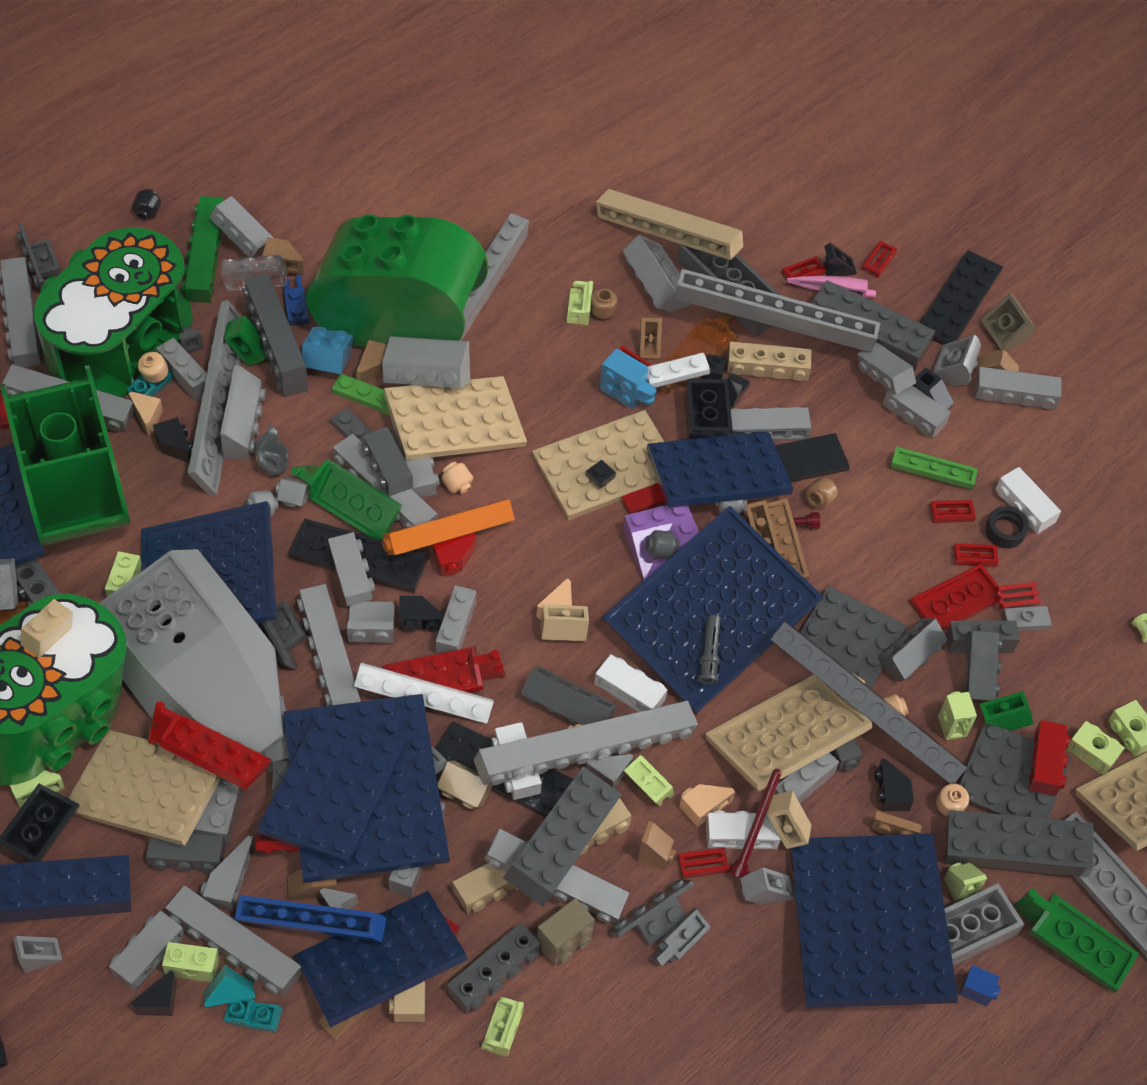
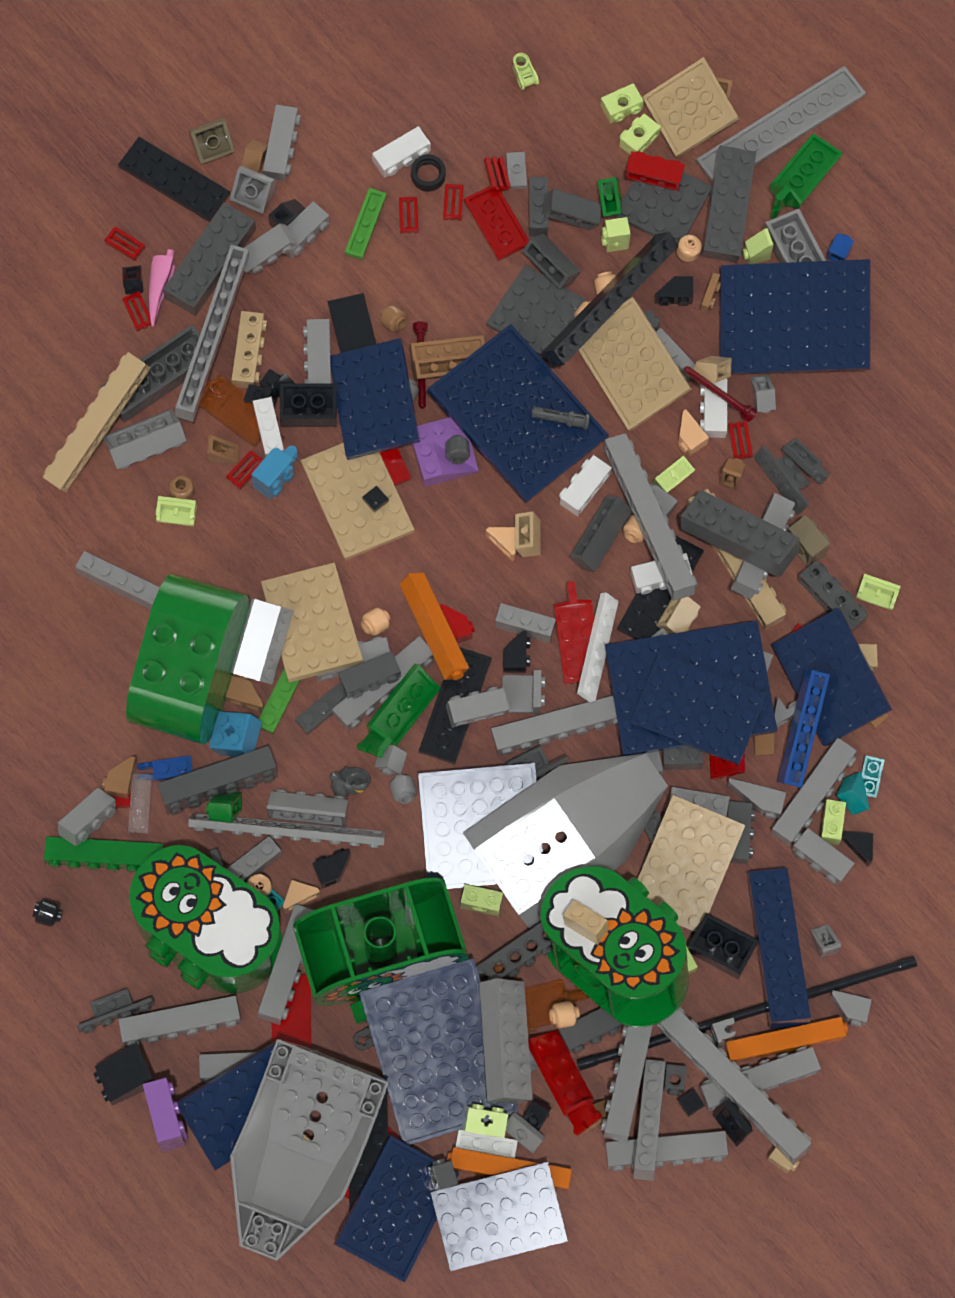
camera: 85 degrees left, 15 degrees up
(206, 747) = (665, 807): red hinge -> none

